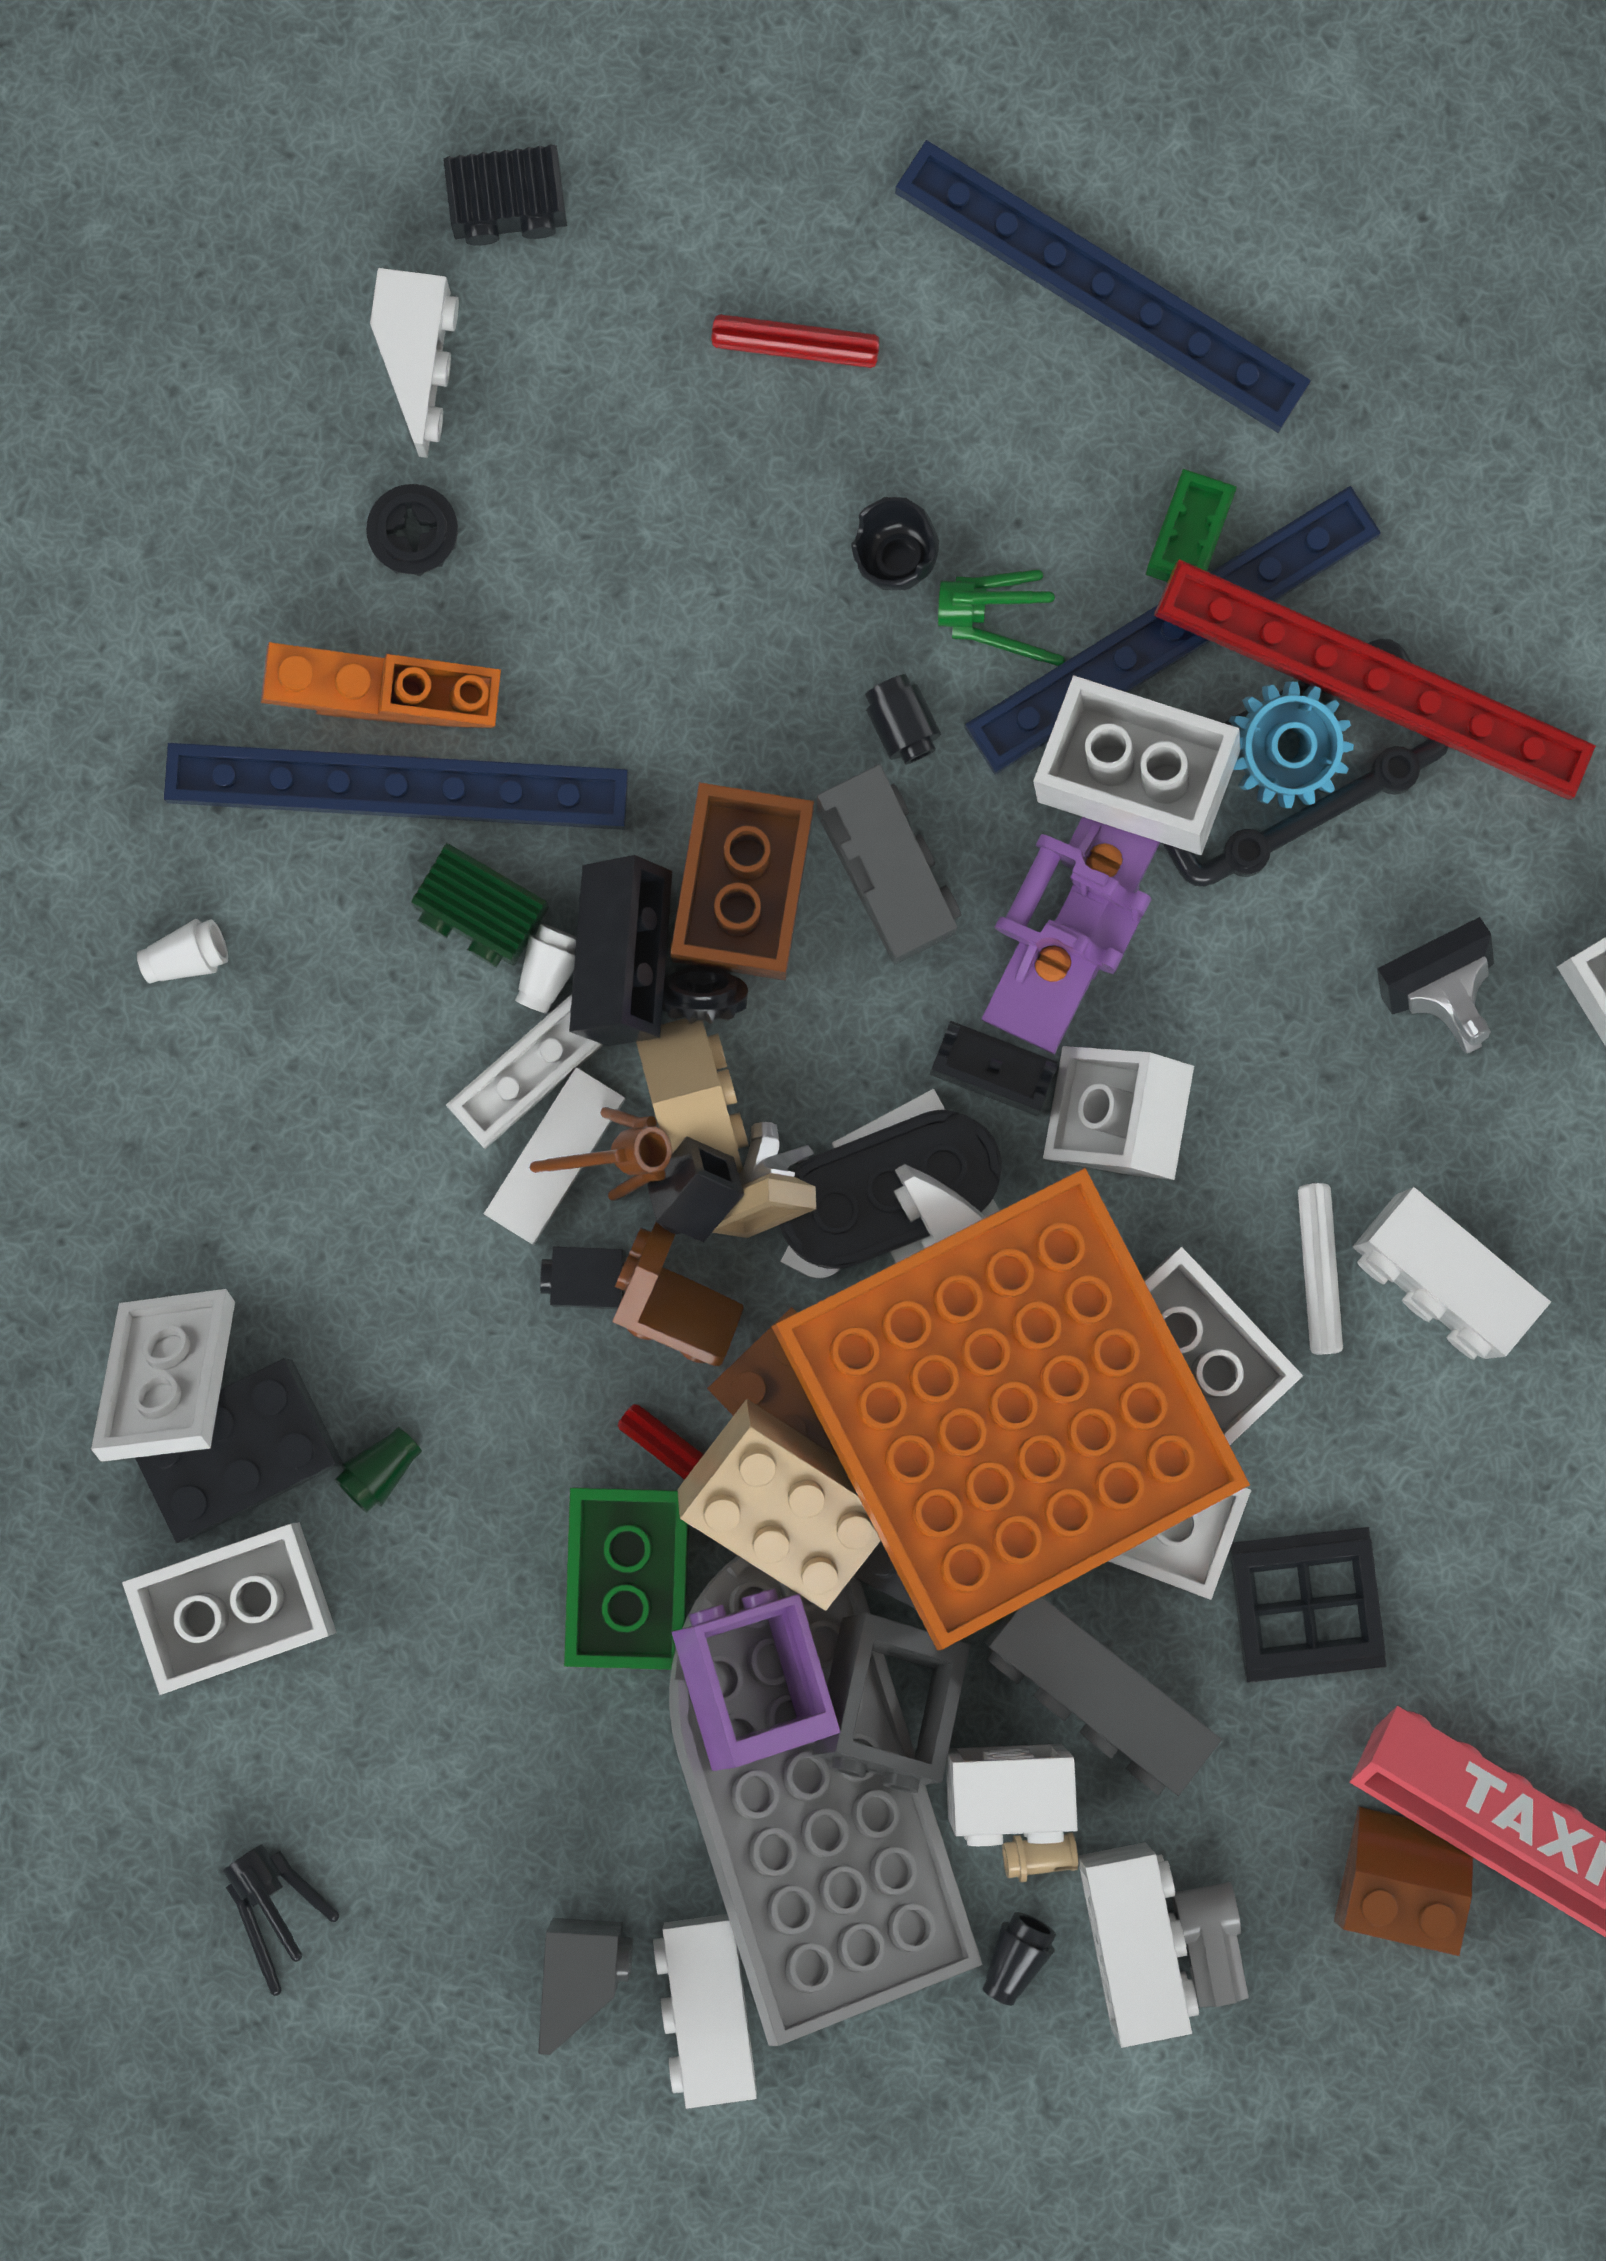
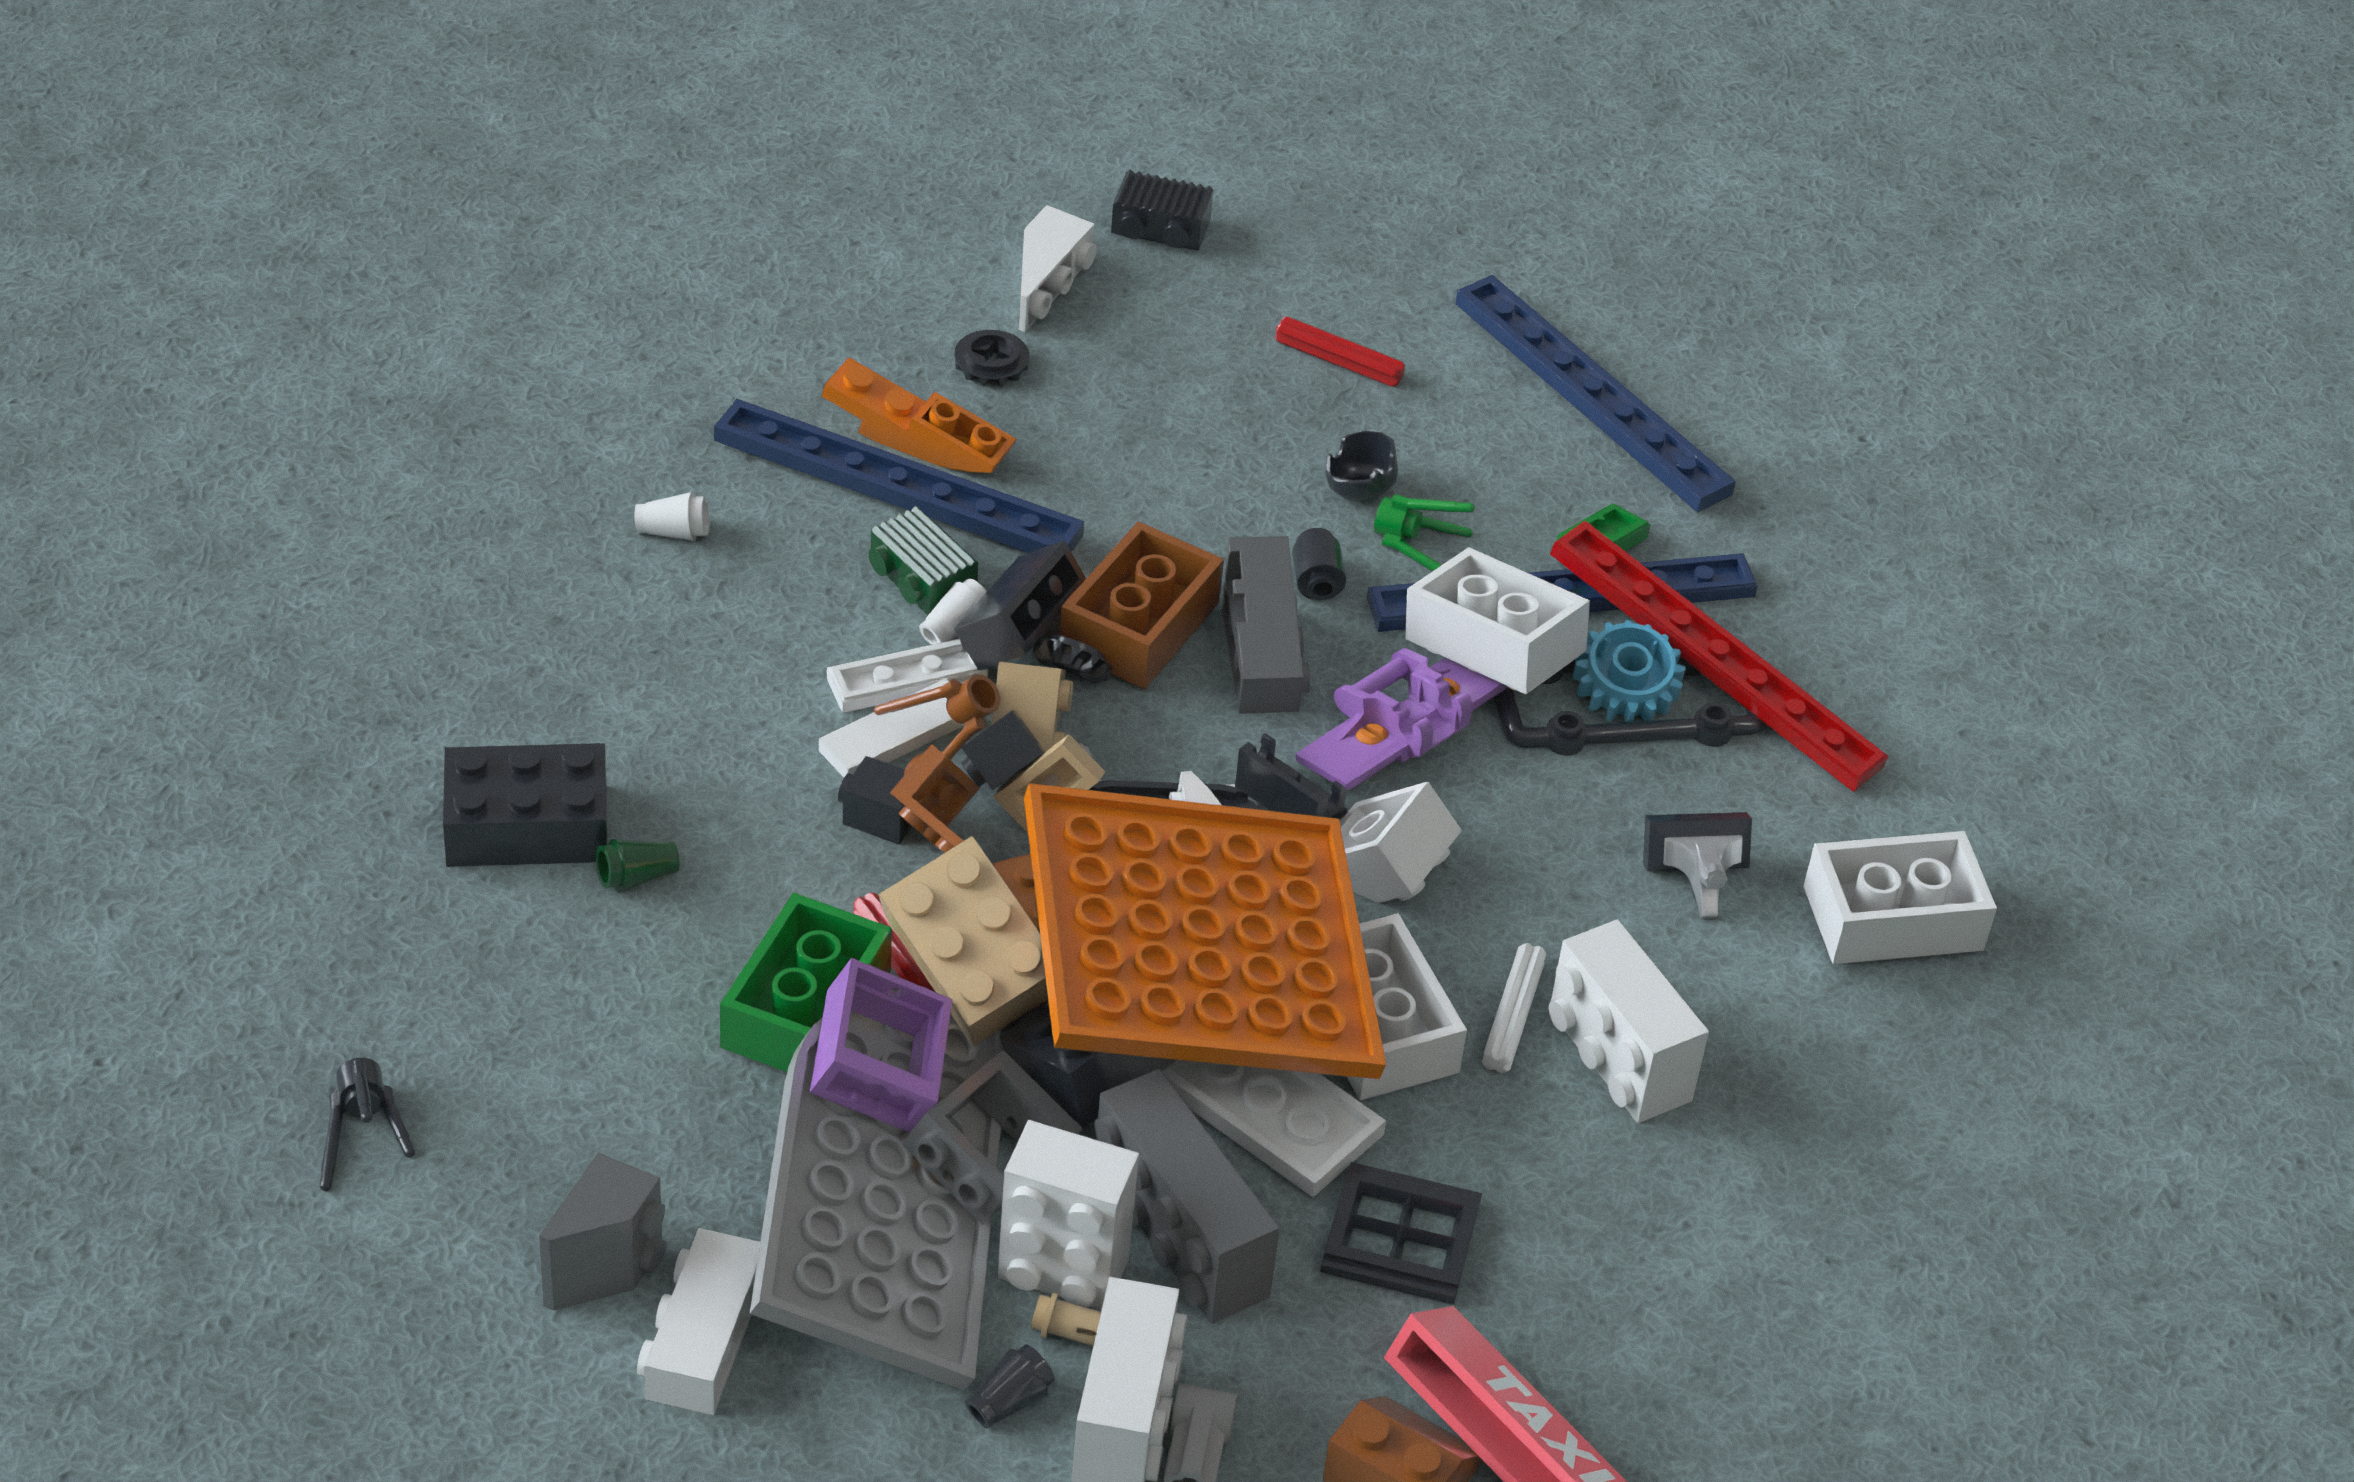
camera: 20 degrees right, 40 degrees down
(163, 1375) = (500, 722): white plate -> none
(229, 1607) = (457, 893): white brick -> none

